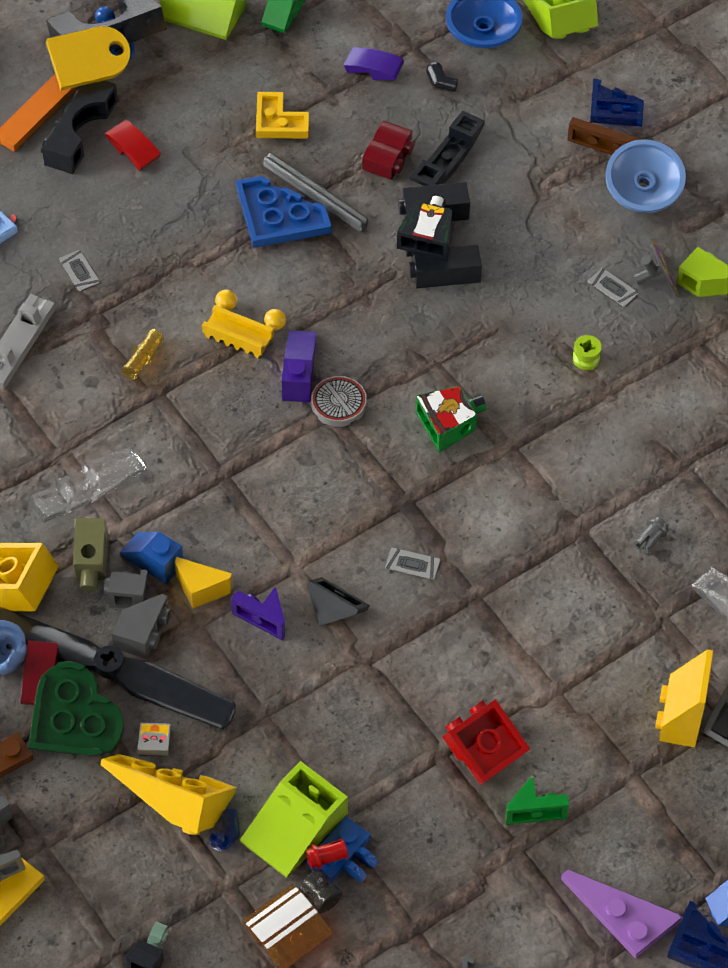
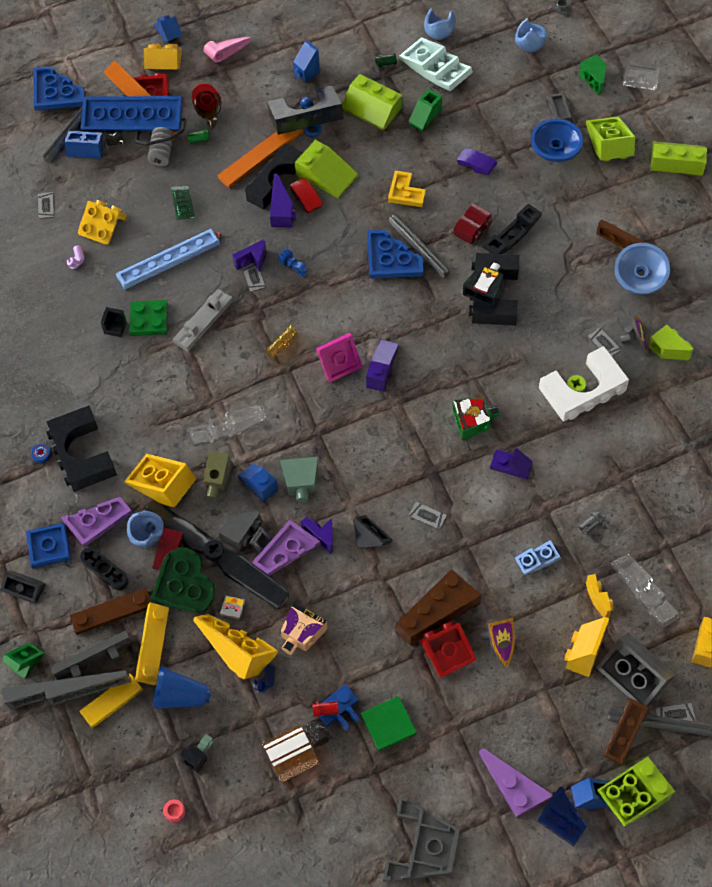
camera: 15 degrees right, 5 degrees up
(44, 810) = (152, 644): none -> yellow plate
(70, 238) = (252, 254): none -> dark purple slope
(85, 56) = (285, 131): yellow tile -> none
(100, 868) = (178, 691): none -> blue cone
(101, 164) = (281, 206): none -> dark purple slope
(123, 236) = (286, 258): none -> blue piece
(126, 588) = (236, 502): dark grey brick -> none
(153, 104) = (325, 169): none -> lime slope
(176, 637) = (260, 539): none -> dark grey slope
(202, 582) = (286, 506): yellow slope -> none
(213, 537) = (300, 477): none -> sand green torso
(215, 641) = (285, 548): none -> medium lavender wing
(235, 362) = (339, 357): none -> dark pink tile
(241, 330) = (340, 328): yellow gear -> none
(265, 750) = (301, 629): none -> torso
(294, 818) = (310, 681): lime slope -> none
(338, 401) = (402, 394): tile -> none
(421, 861) = (388, 723): none -> green tile
(438, 79) = (518, 178): black arm -> none
(462, 681) = (441, 604): none -> reddish brown wedge
(521, 472) = (513, 464): none -> dark purple slope
(528, 808) = (466, 701): green slope -> none
(560, 714) = (502, 639): none -> shield
(585, 375) = (571, 403): none -> white arch
(586, 596) = (538, 558): none -> light blue slope
(615, 106) = (633, 215): clear blue wing -> none
(661, 21) = (678, 158): none -> lime slope
(685, 636) = (600, 599): none -> yellow slope

